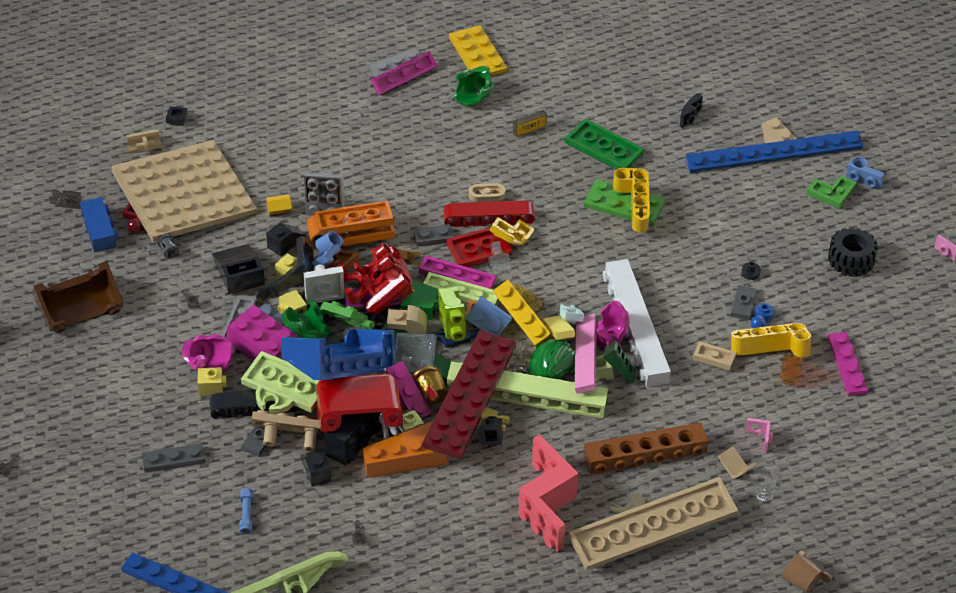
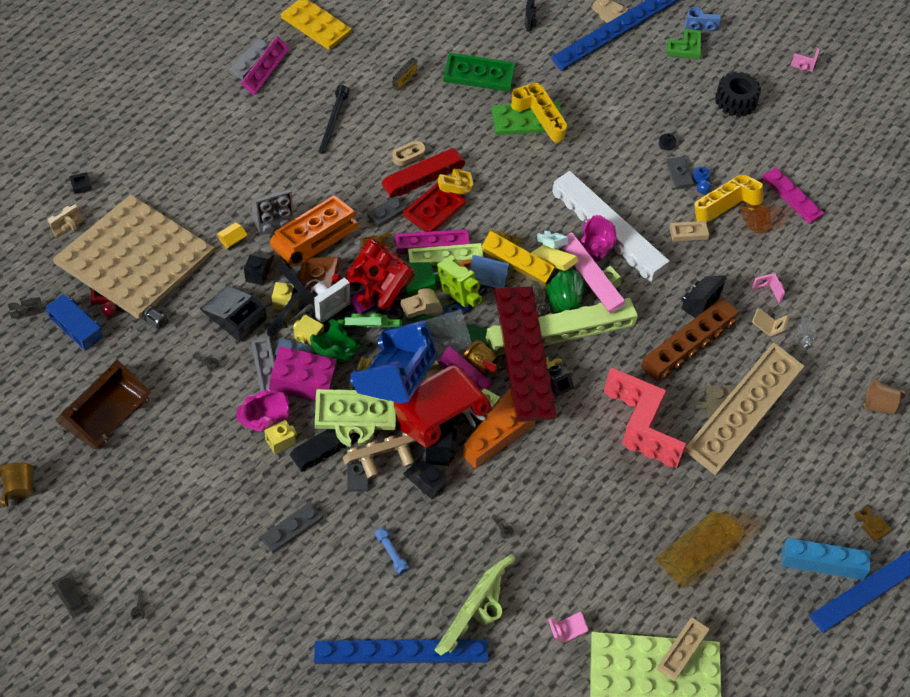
camera: 30 degrees left, 10 degrees up
(328, 247) = (311, 262): medium blue plate -> none
(458, 121) = (341, 94): none -> black piece
(472, 80) = (334, 49): green hair -> none
(499, 262) = (462, 214): clear plate -> none
(618, 360) = (621, 268): dark green slope -> none
(685, 413) = (703, 295): none -> black slope

